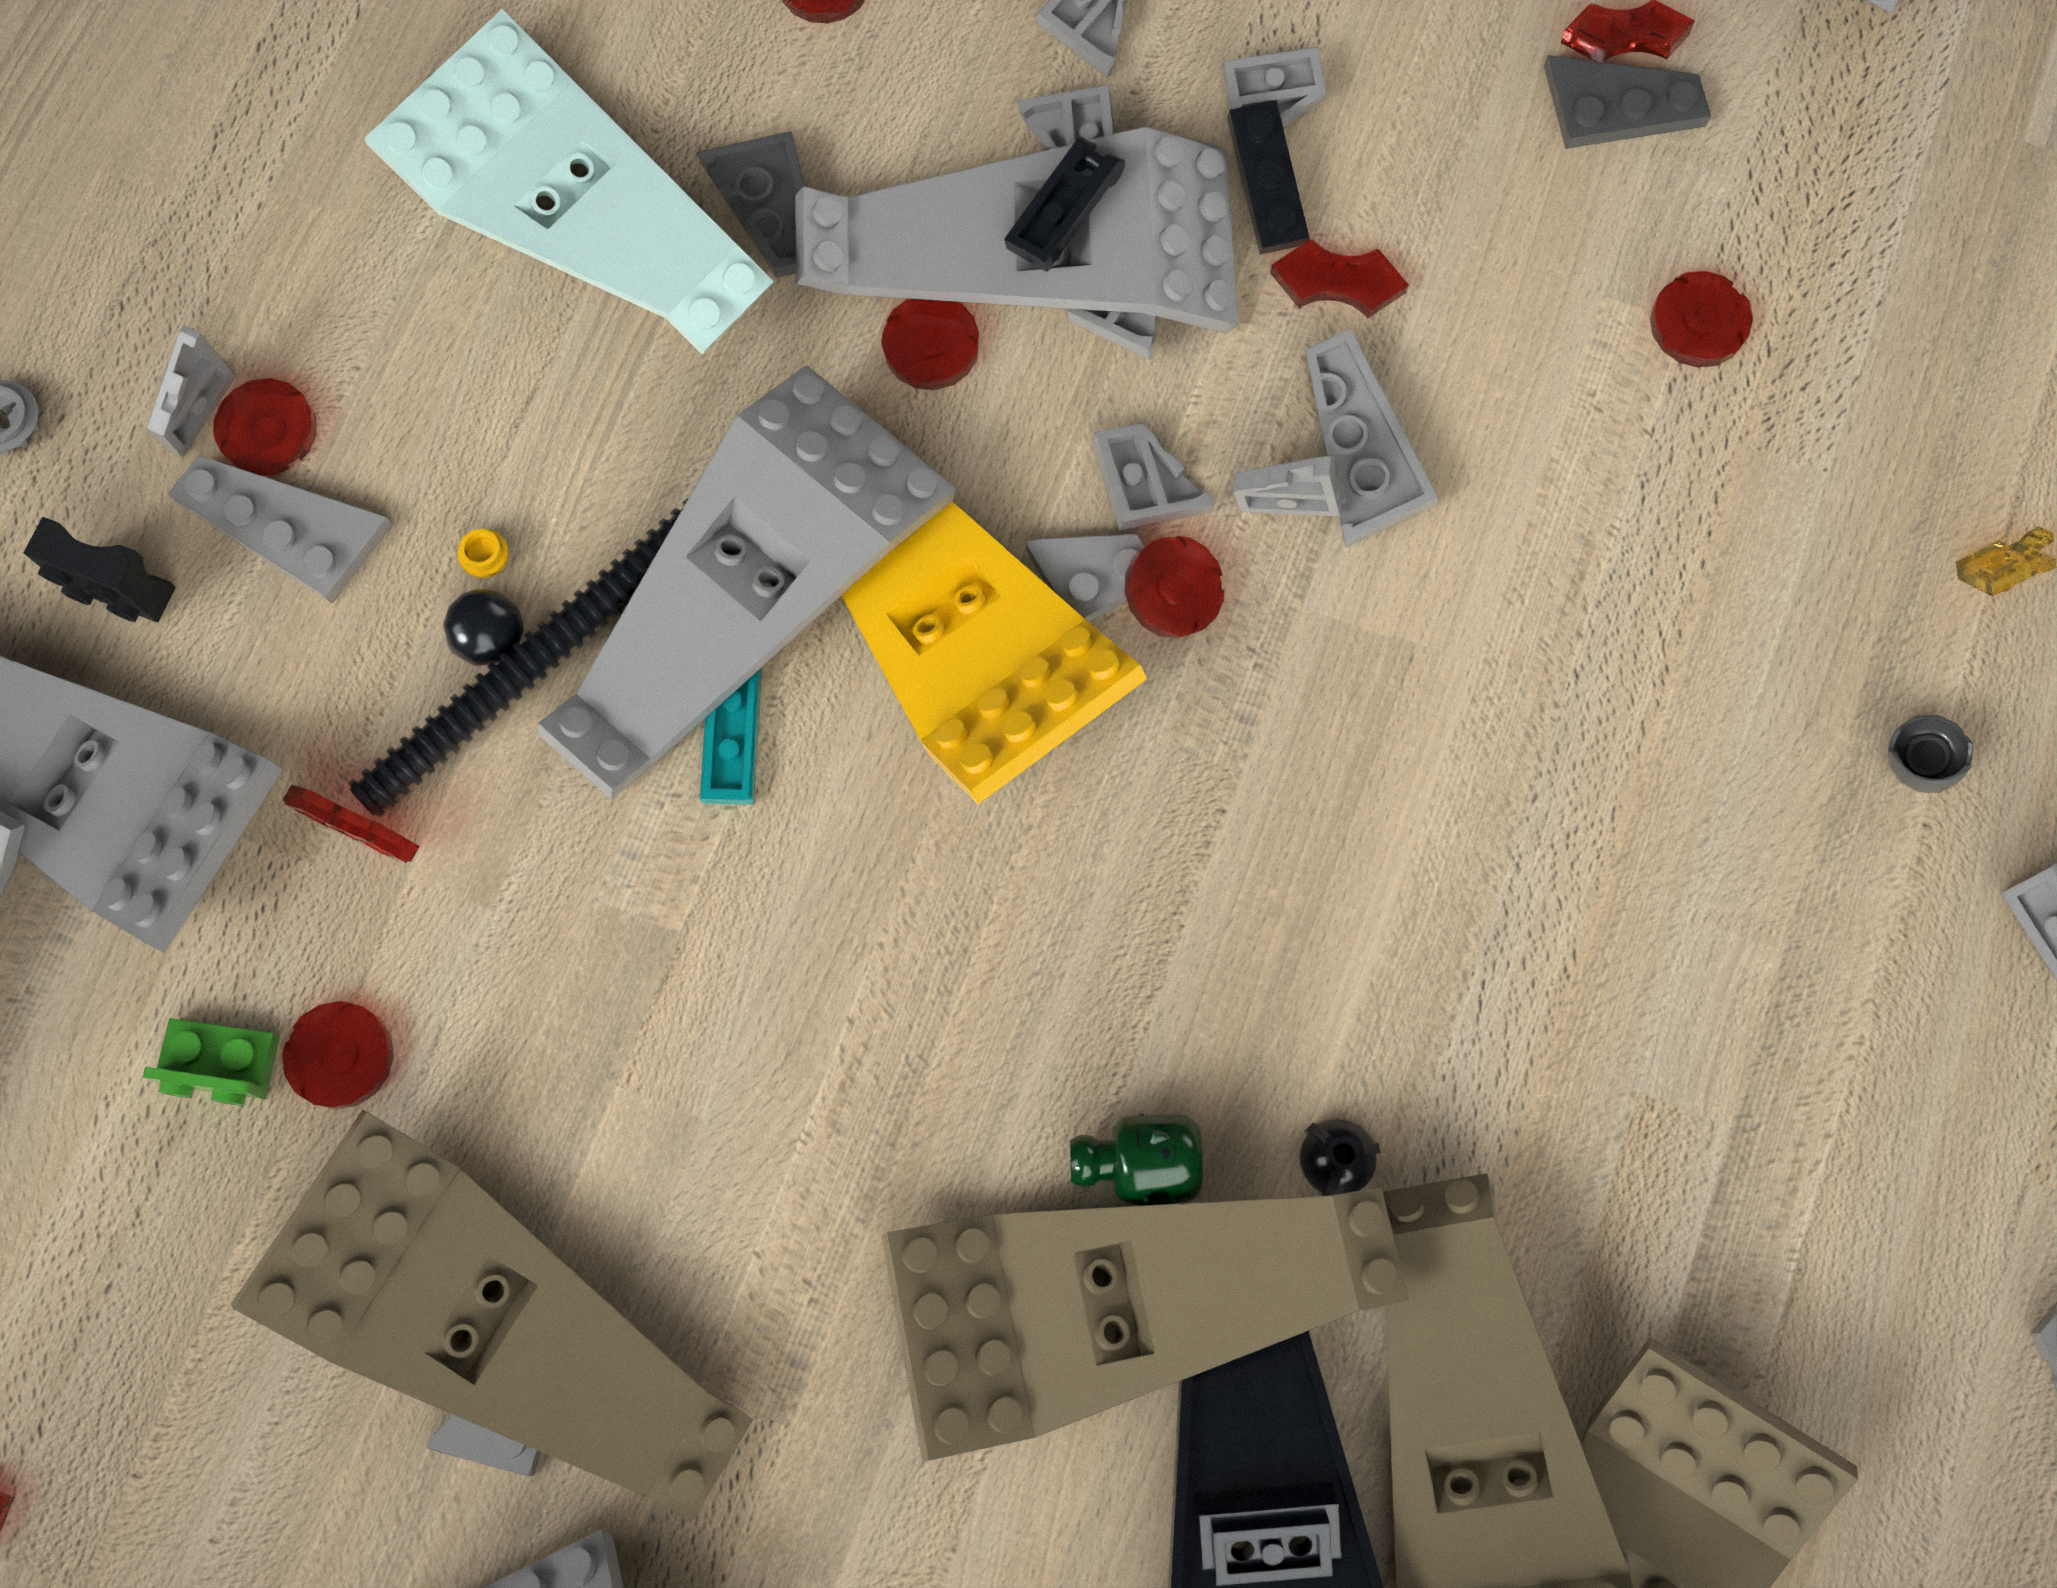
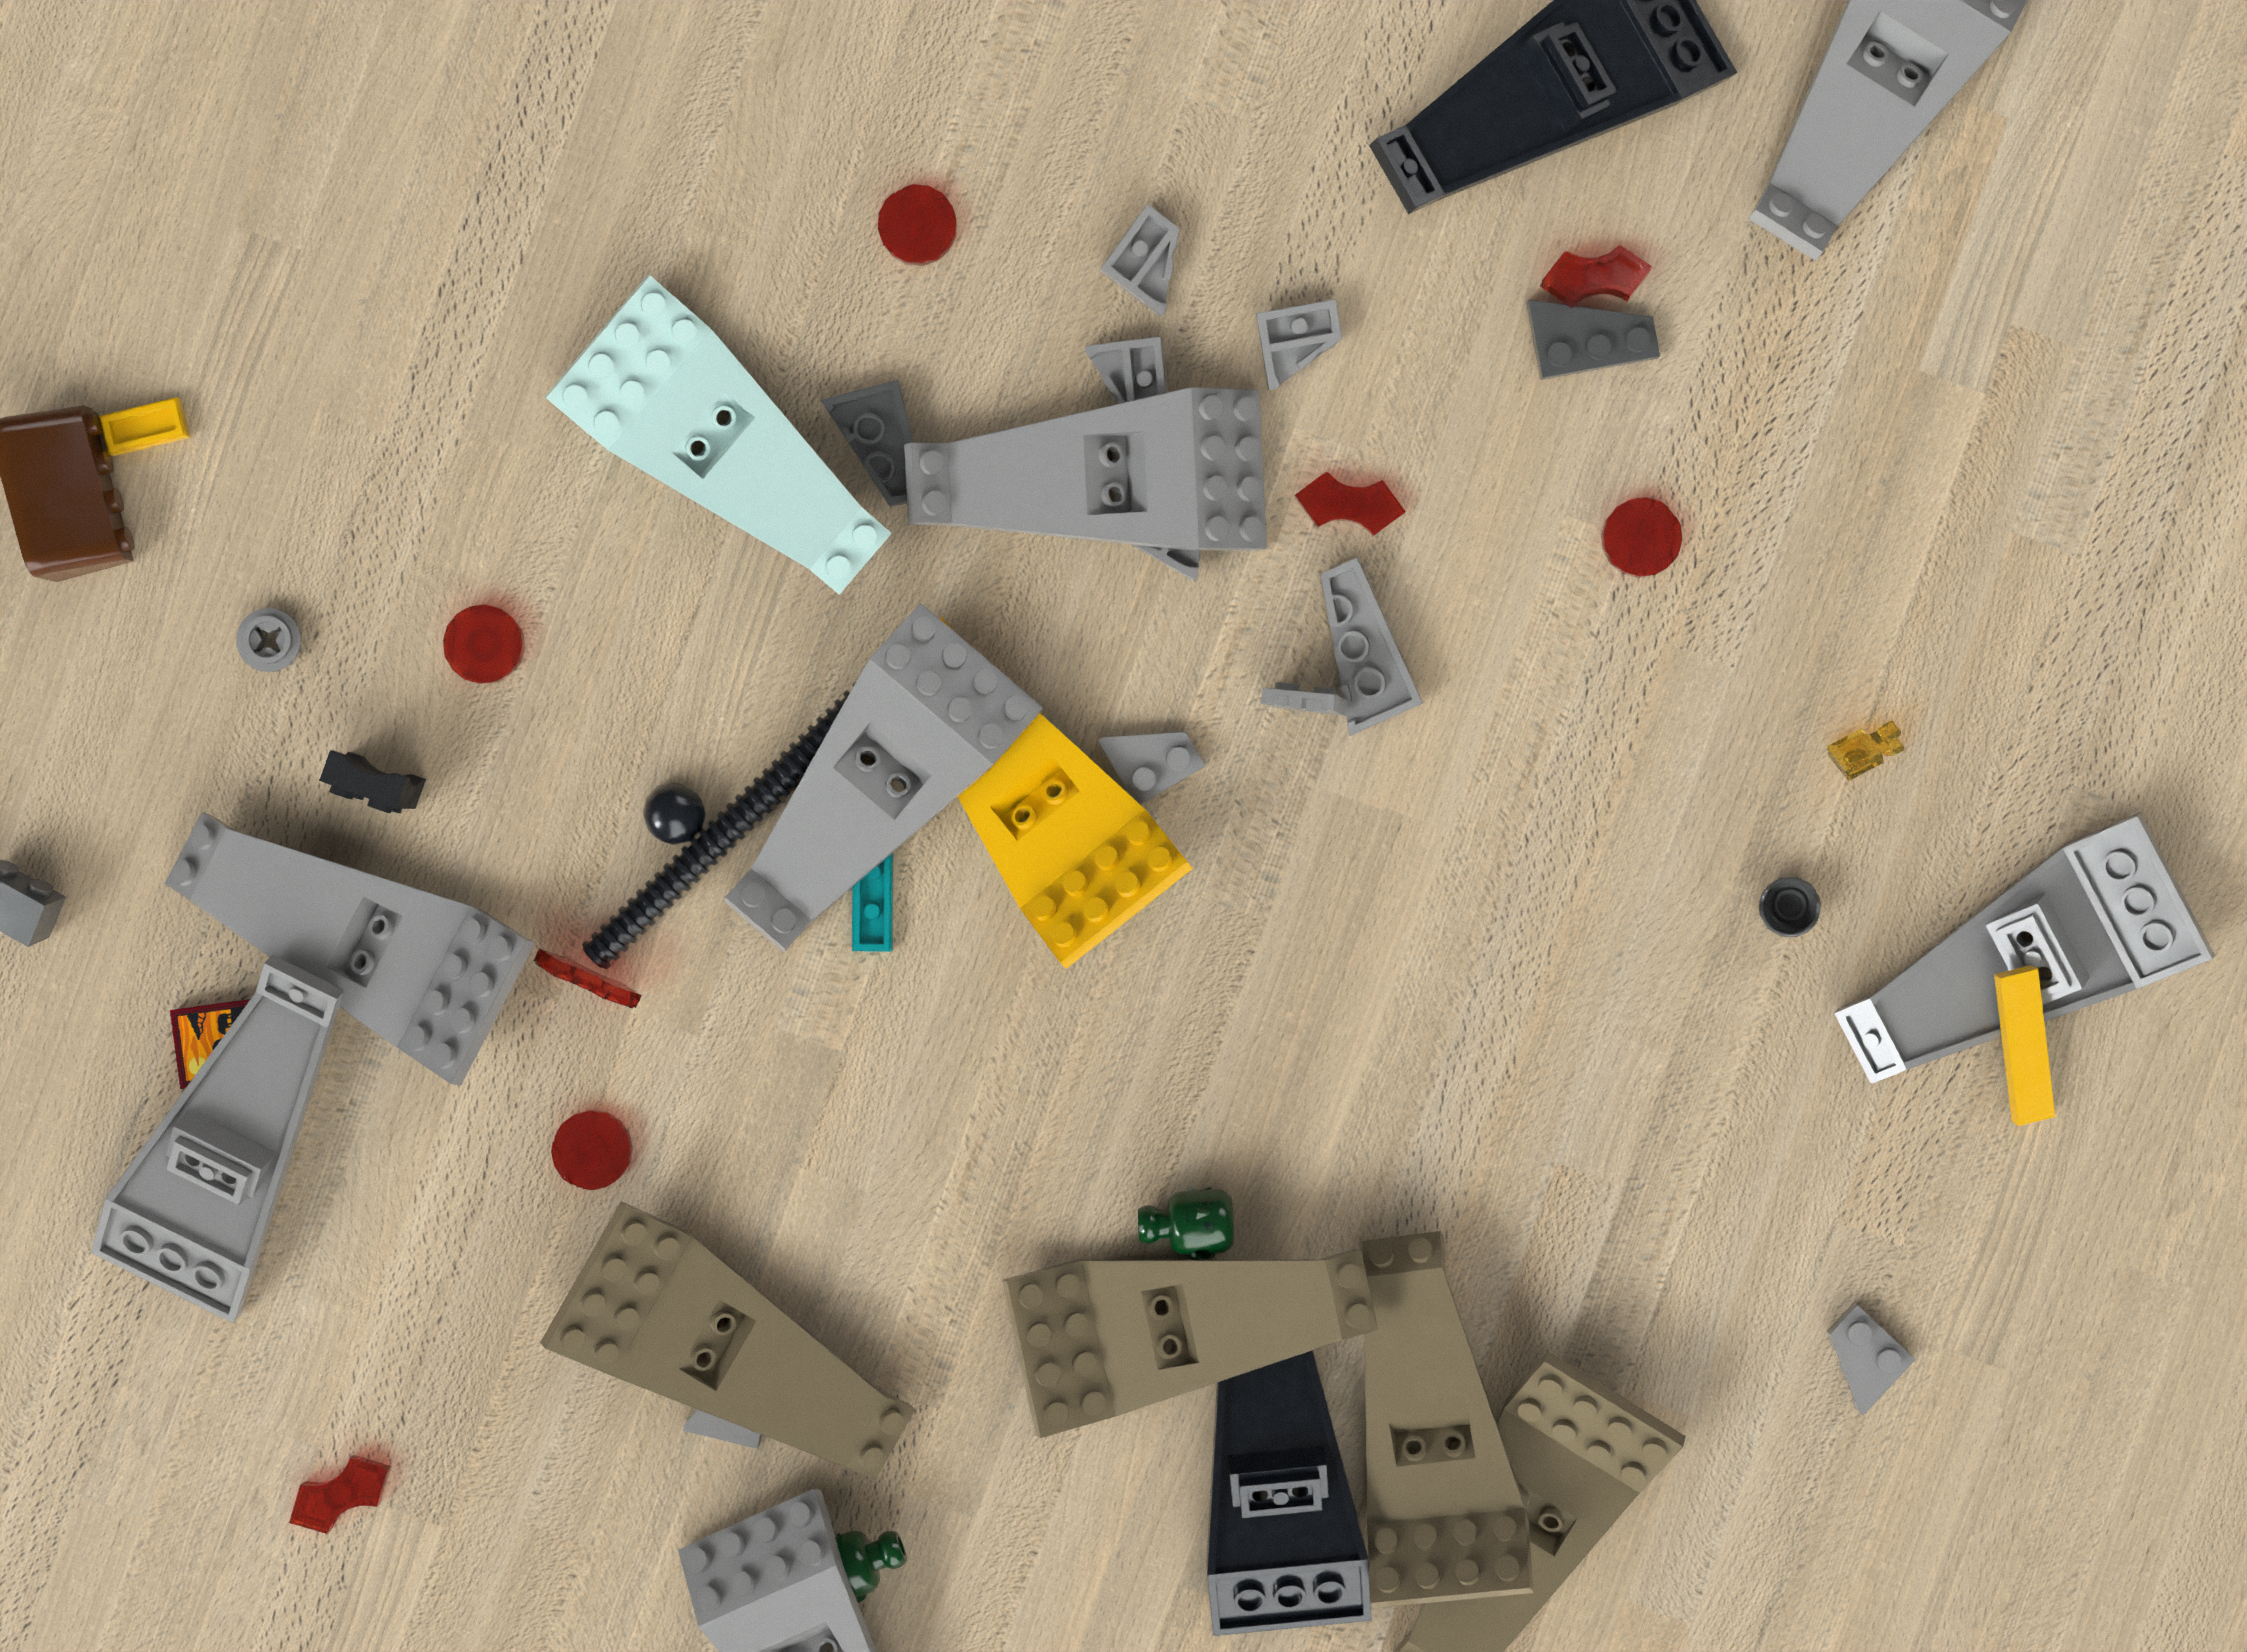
camera: 10 degrees left, 15 degrees up
(189, 391) = (422, 625): light grey wing -> none
(214, 1059) = (500, 1157): bright green bracket -> none
(291, 528) = (513, 731): light grey wing -> none
(483, 553) = (669, 751): yellow plate -> none
(930, 343) = (1017, 565): clear red tile -> none
(1063, 204) = (1124, 462): black plate -> none
(1144, 479) = (1191, 685): light grey wing -> none
(1174, 587) = (1214, 777): clear red tile -> none
(1268, 177) = (1292, 416): black plate -> none
(1320, 1165) = (1333, 1200): black piece -> none

